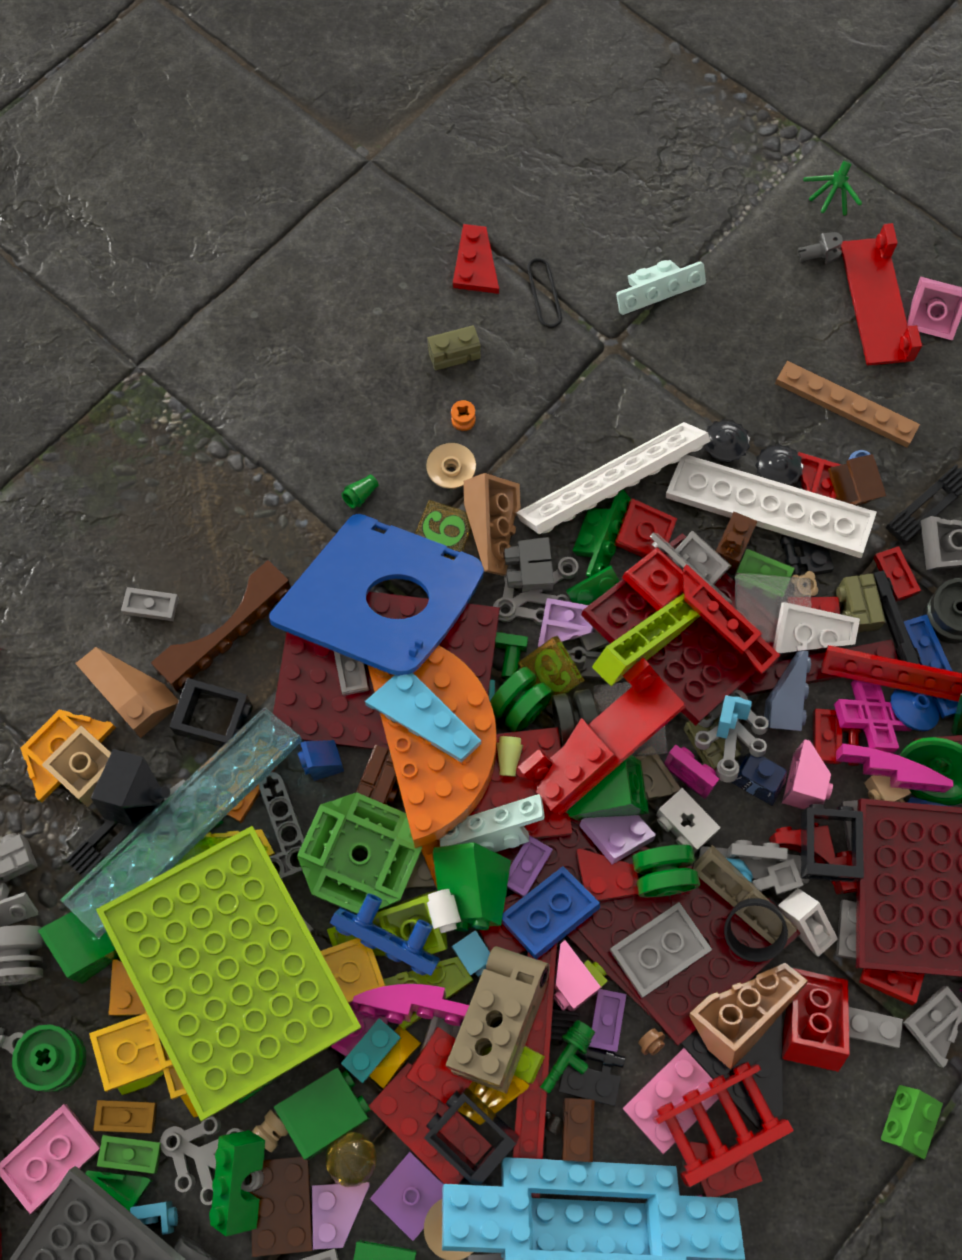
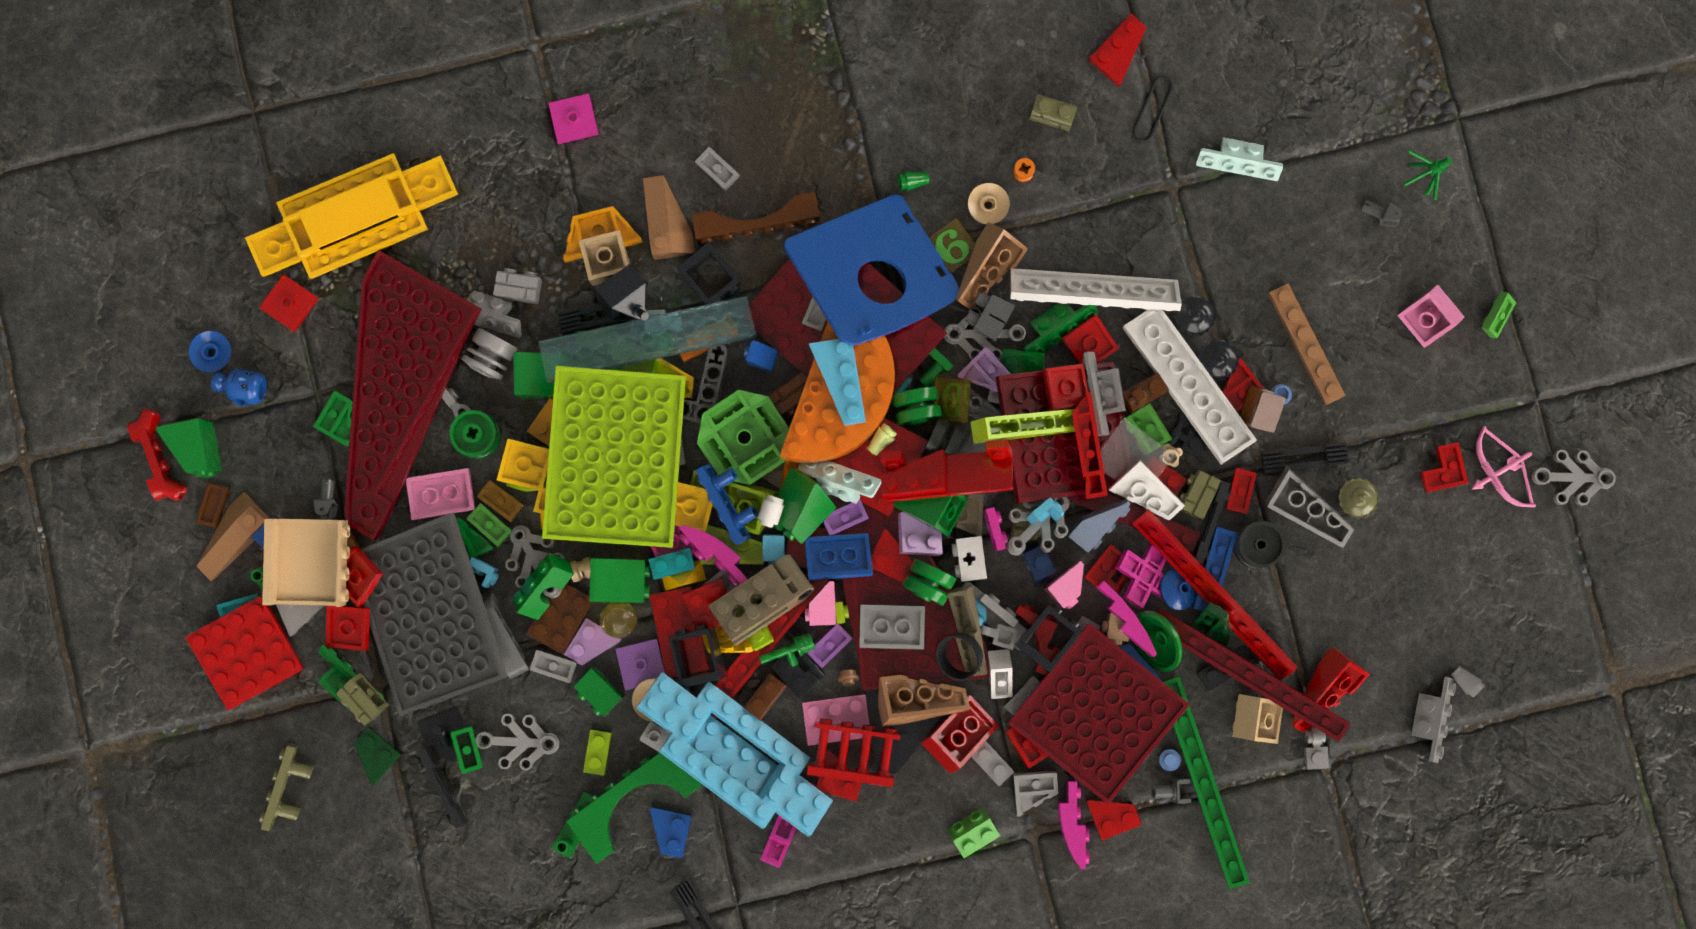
camera: 40 degrees right, 15 degrees up
(878, 300) = (1393, 280): red bracket -> none

